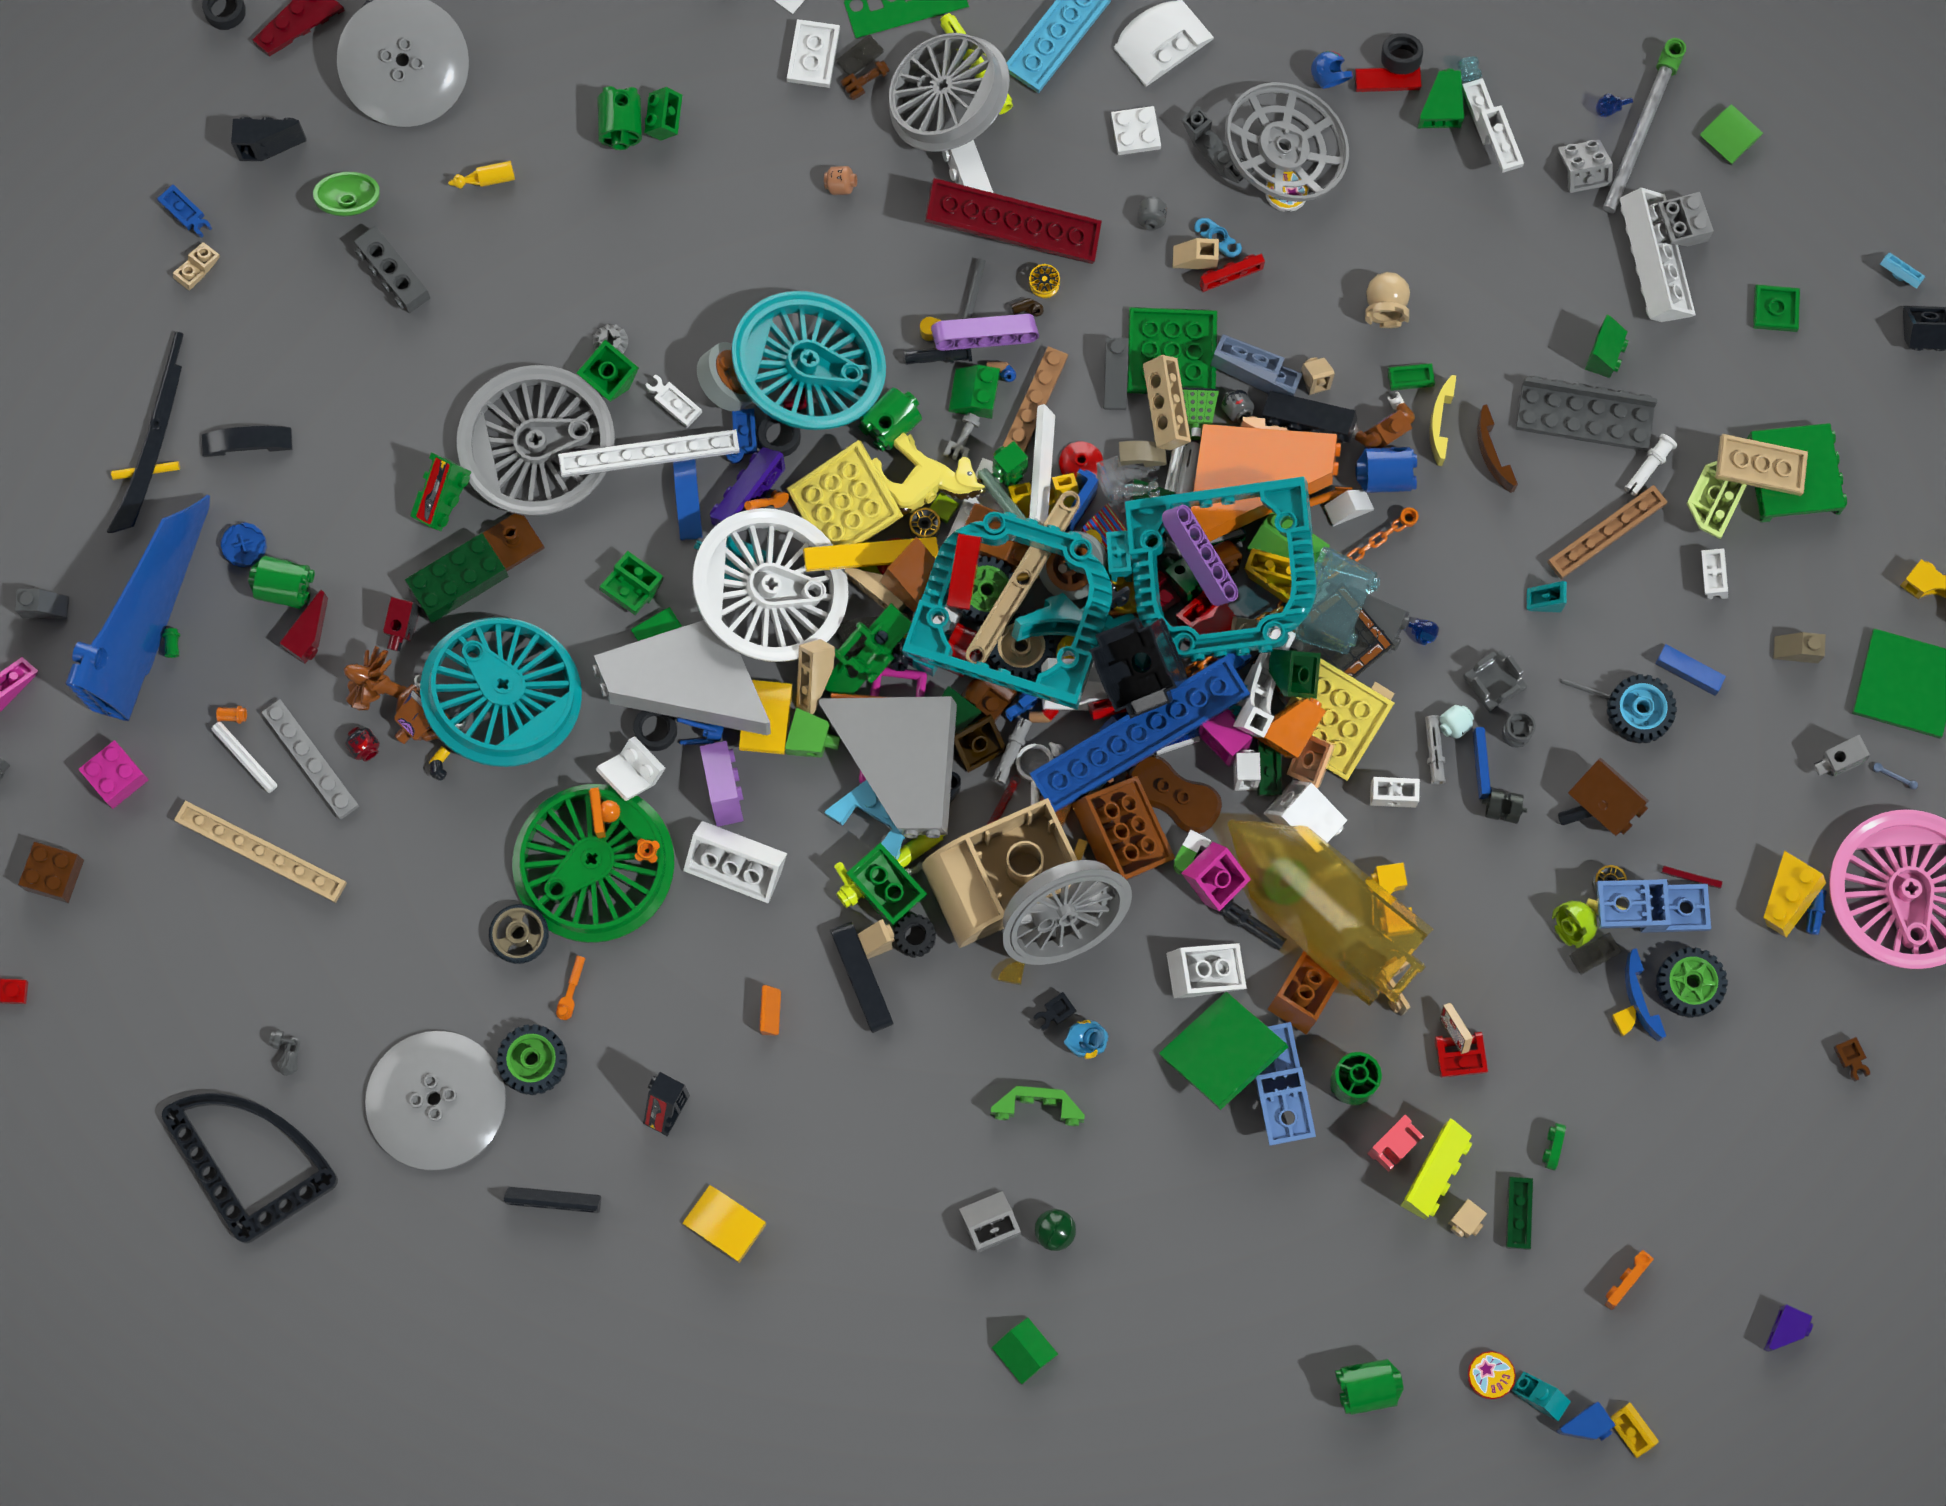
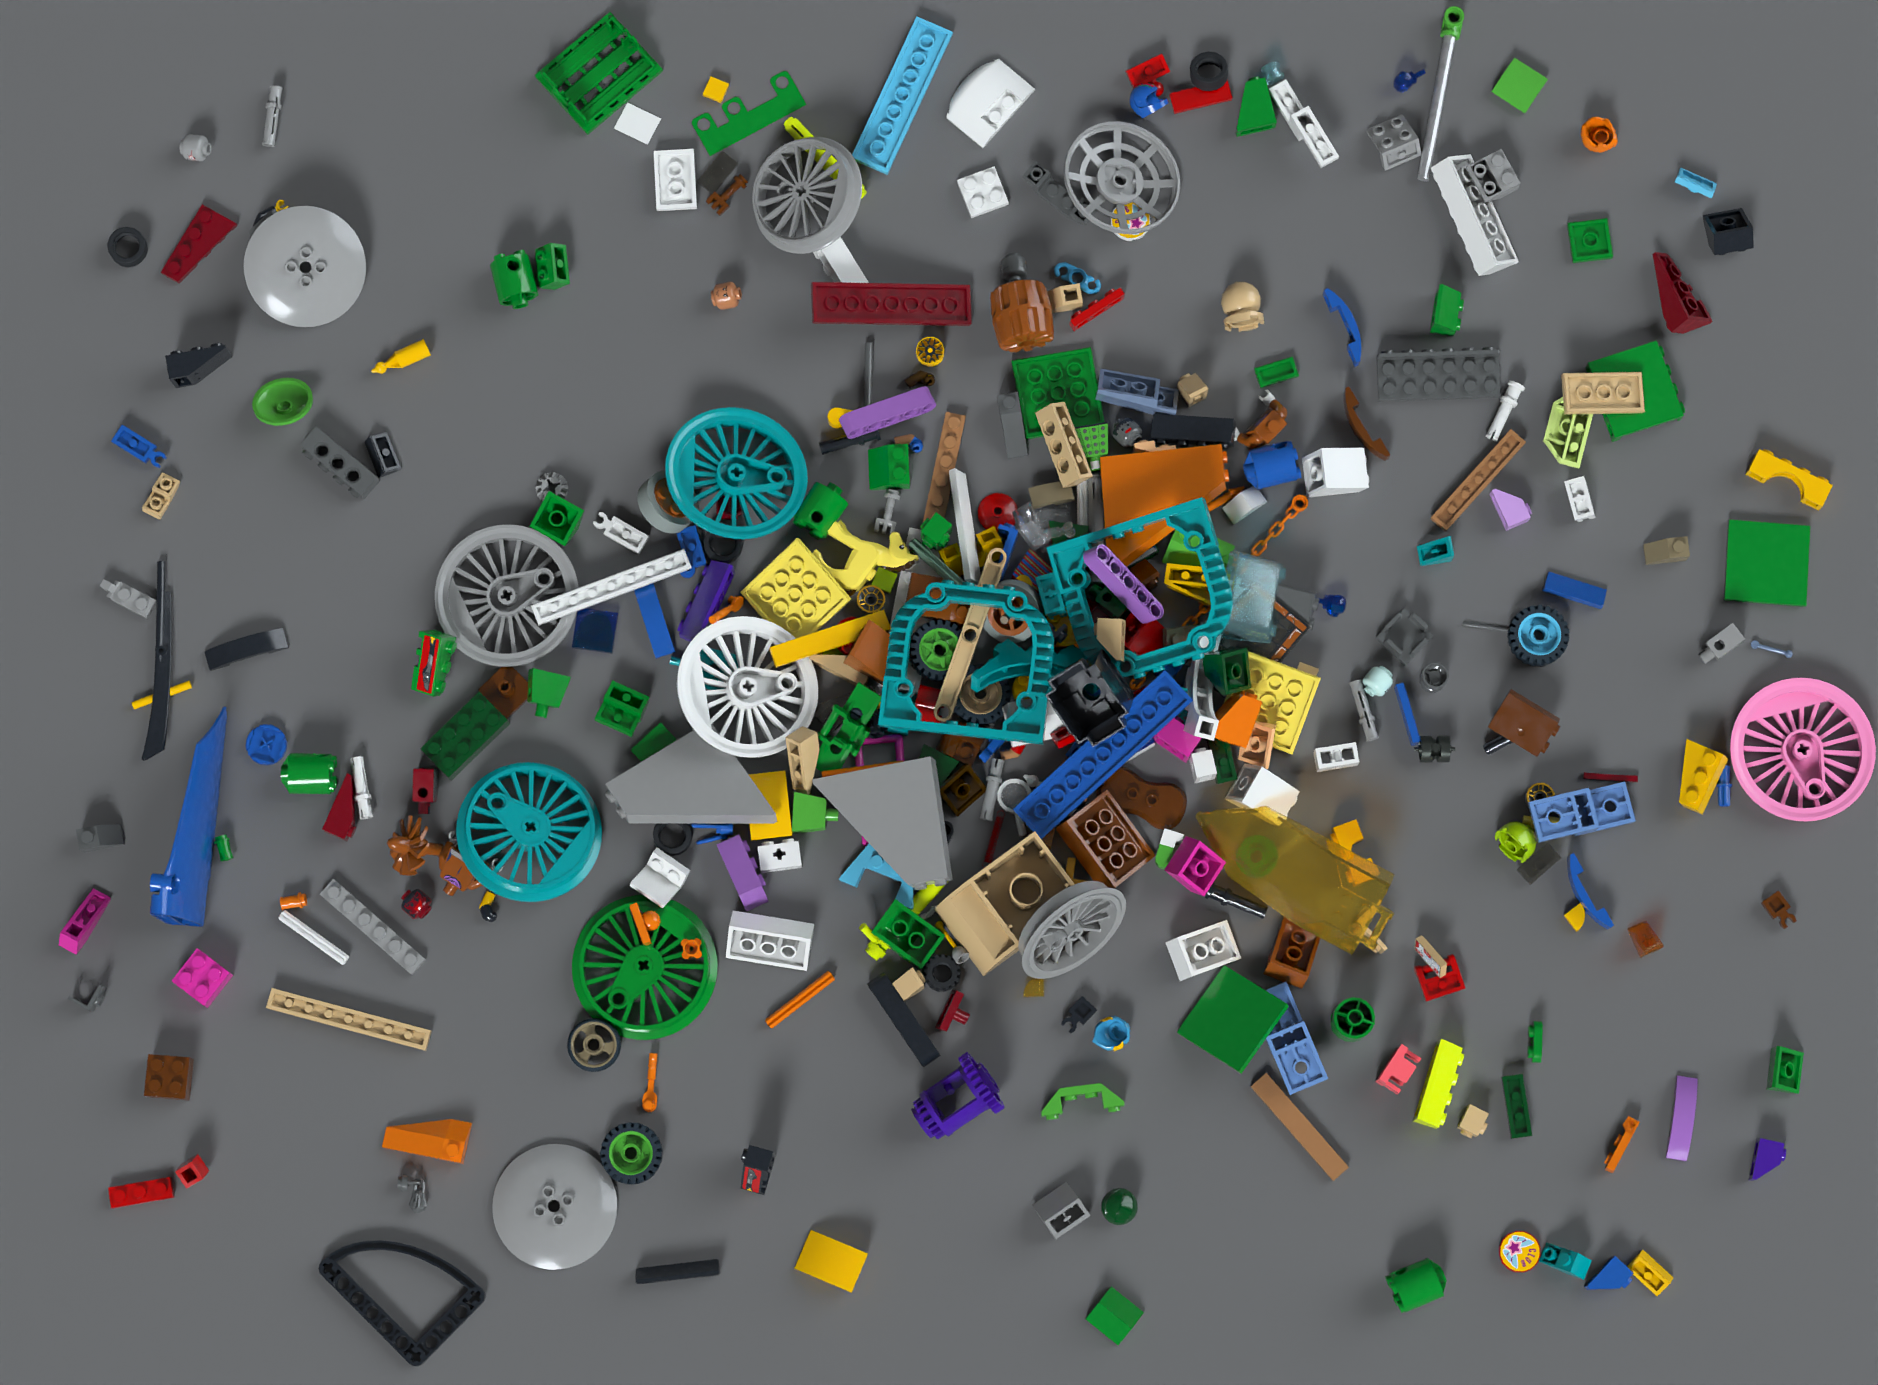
camera: 10 degrees left, 5 degrees up
(50, 977) = (192, 1171): none -> red brick
(136, 363) = (129, 598): none -> light grey hinge
(323, 1000) = (432, 1139): none -> orange wedge
(332, 619) = (362, 794): none -> white pin
(439, 271) = (382, 454): none -> black slope
(554, 547) = (546, 690): none -> green torso
(622, 497) = (595, 630): none -> clear blue tile
(753, 932) = (799, 999): none -> orange axle
(770, 1010) = (830, 1066): orange slope -> none
(775, 781) = (791, 860): none -> white brick
(917, 980) = (952, 1011): none -> dark red tile
(930, 1062) = (979, 1082): none -> dark purple piece
(938, 916) = (959, 953): none -> light grey hinge
(964, 571) = (918, 644): red slope -> none
(1150, 260) = (1022, 315): none -> dark orange wheel
(1176, 606) = (1112, 636): none -> tan slope
(1273, 1185) = (1299, 1127): none -> medium nougat tile
(1339, 42) = (1148, 72): none -> red plate
(1439, 444) = (1312, 431): light yellow slope -> none
(1454, 491) = (1335, 471): none -> white slope
(1489, 317) = (1335, 303): none -> blue slope
(1636, 568) = (1510, 509): none -> lavender slope
(1679, 995) = (1643, 868): wheel -> none
(1697, 1060) = (1644, 939): none -> clear orange slope
(1702, 1266) = (1682, 1118): none -> medium lavender slope
(1807, 199) = (1598, 134): none -> orange hair
(1827, 1236) = (1785, 1070): none -> green slope
(1860, 393) = (1678, 304): none -> dark red wedge

